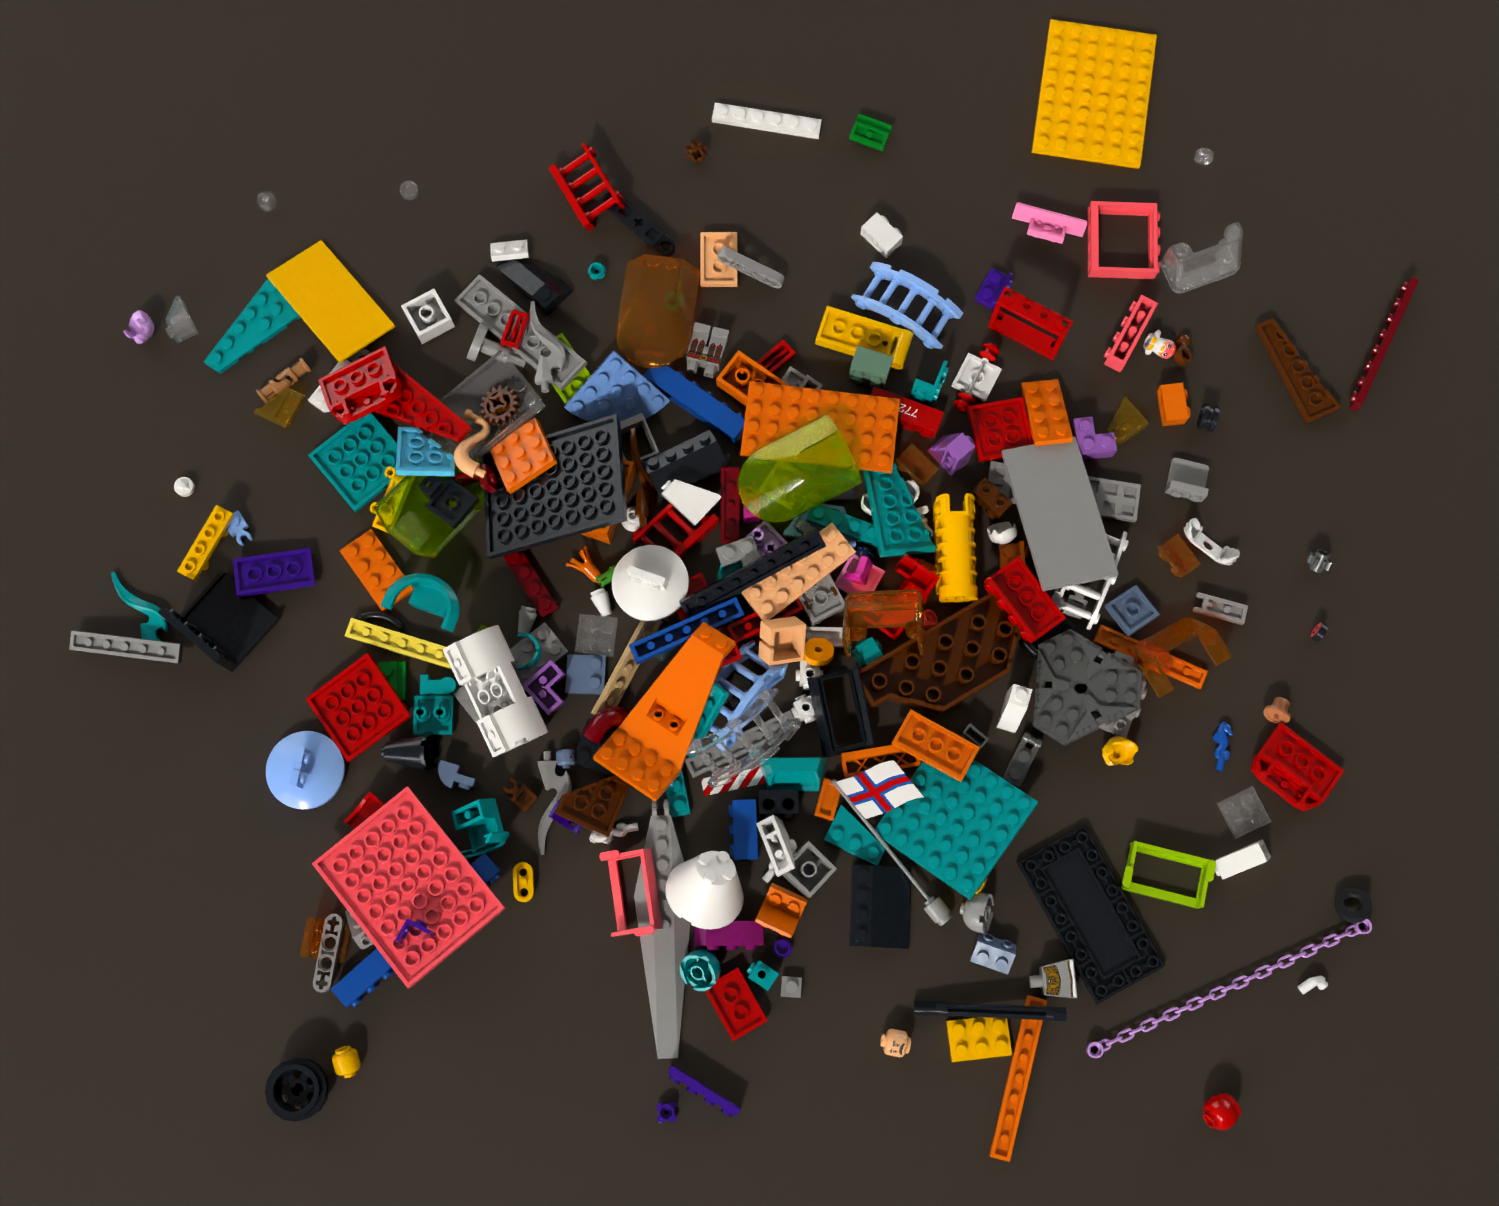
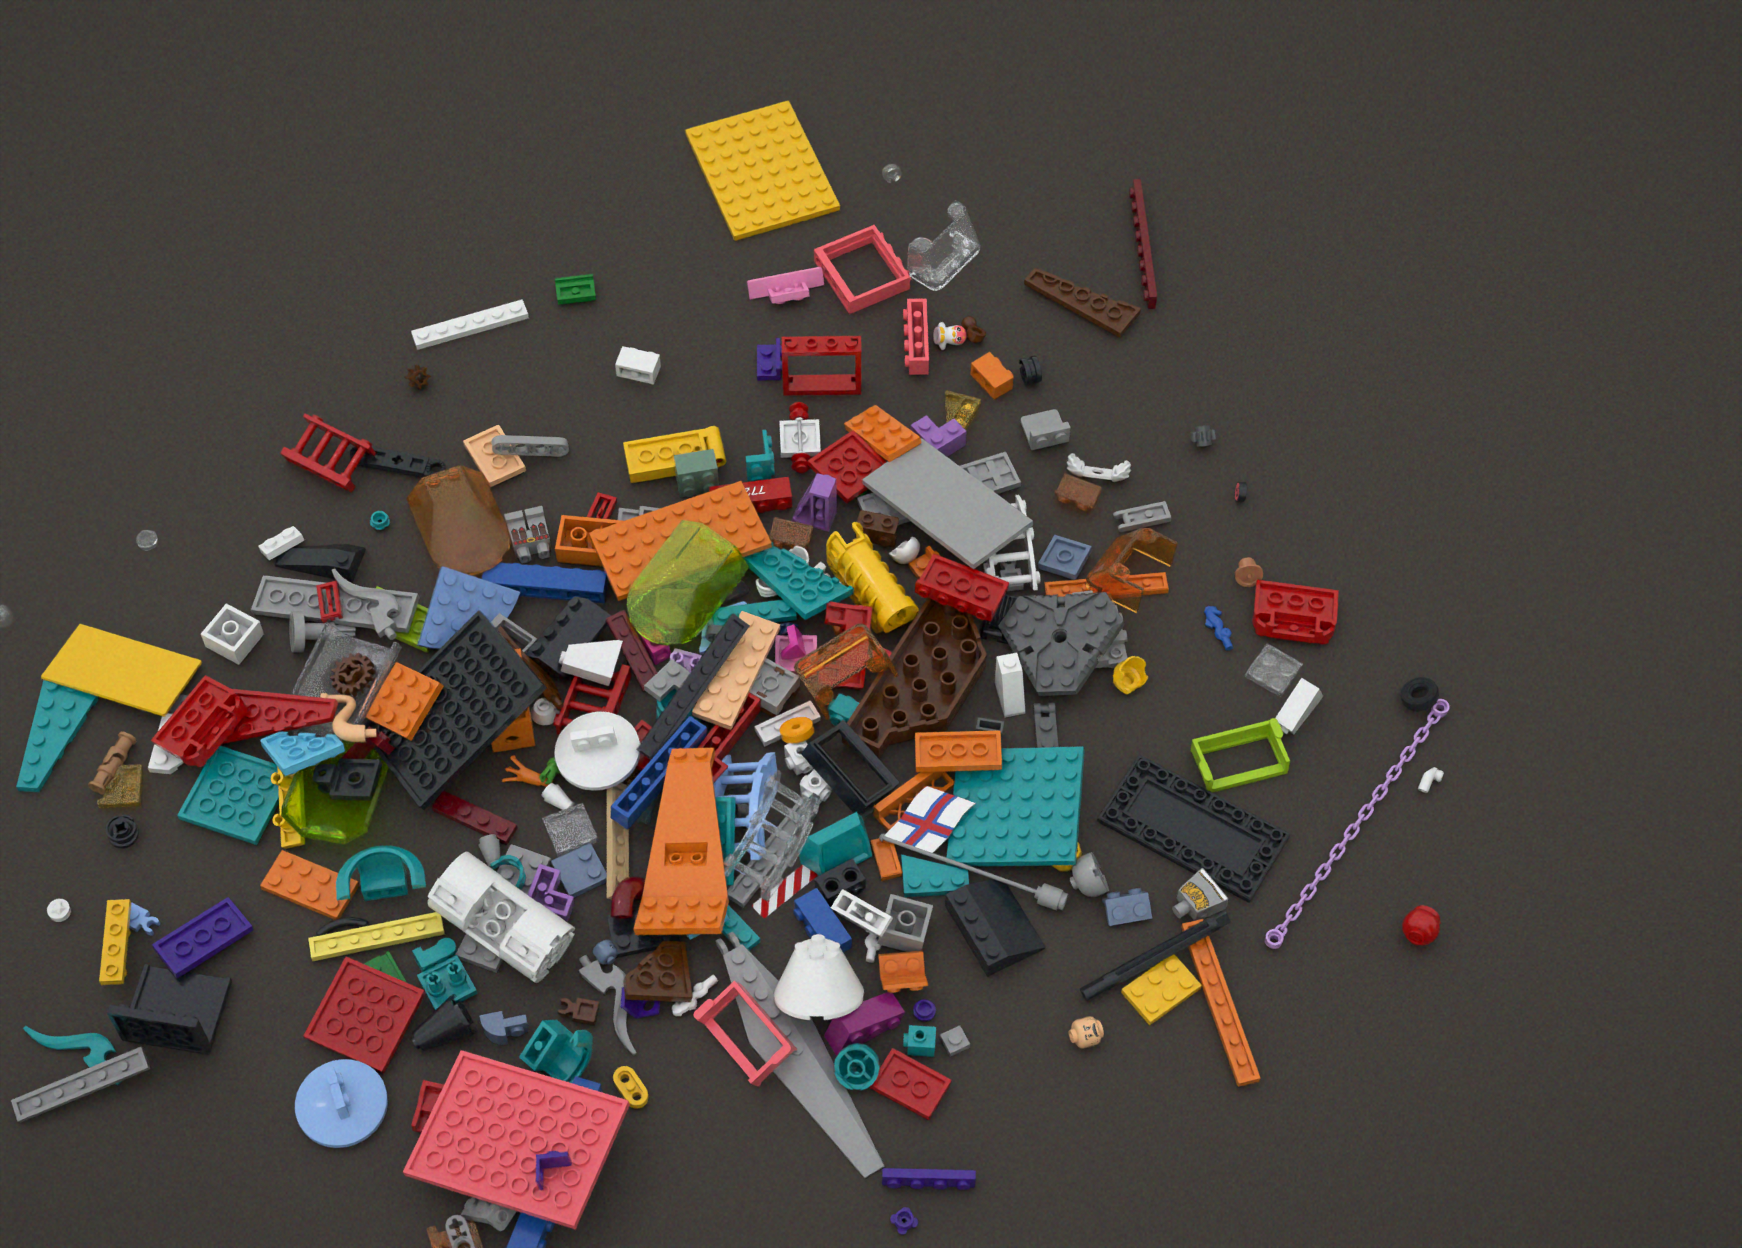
camera: 30 degrees left, 20 degrees down
(269, 444) = (123, 838): none -> black wheel
(782, 640) = (757, 733): light nougat piece -> none
(916, 286) = (697, 385): light blue fence -> none

